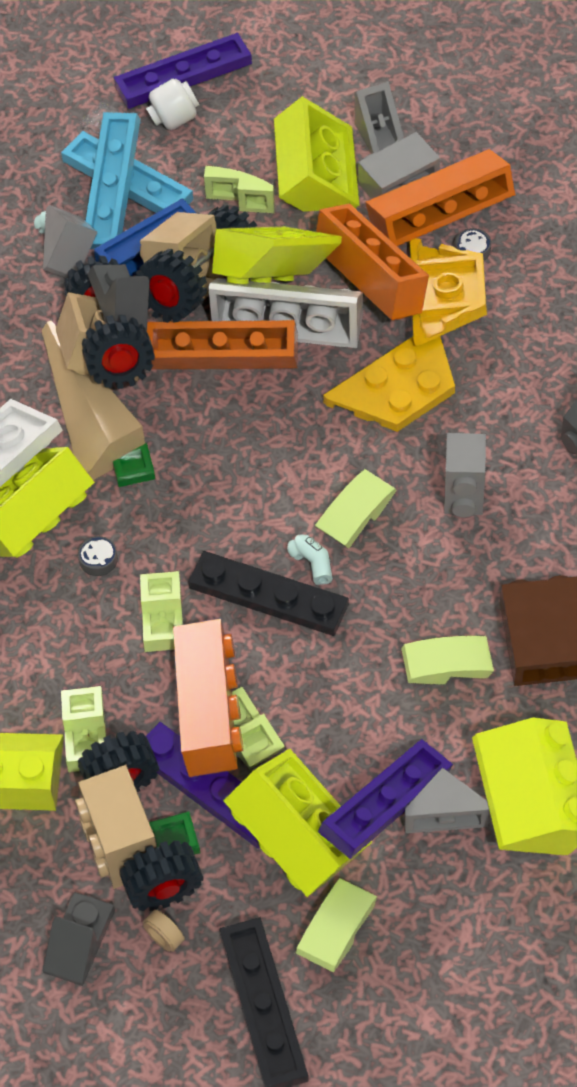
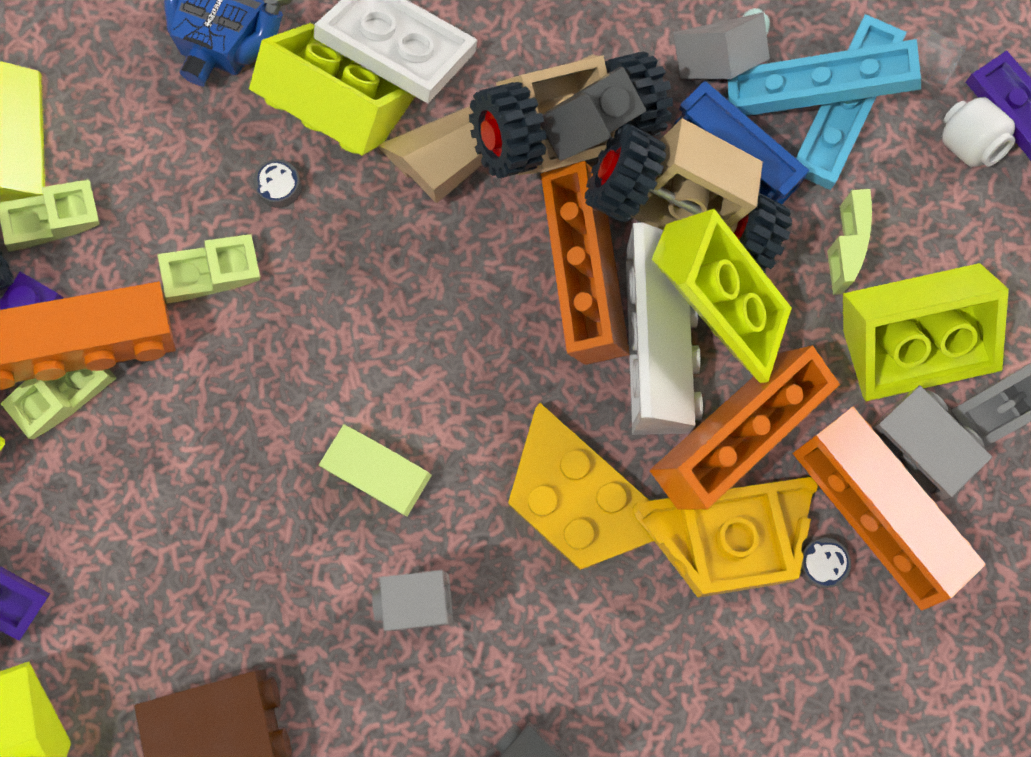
camera: 80 degrees right, 20 degrees up
(134, 467) = (408, 200): green tile -> none
(269, 593) = (246, 386): black plate -> none
(307, 547) = (304, 430): light aqua arm -> none
(446, 657) = (166, 615): yellowish green slope -> none

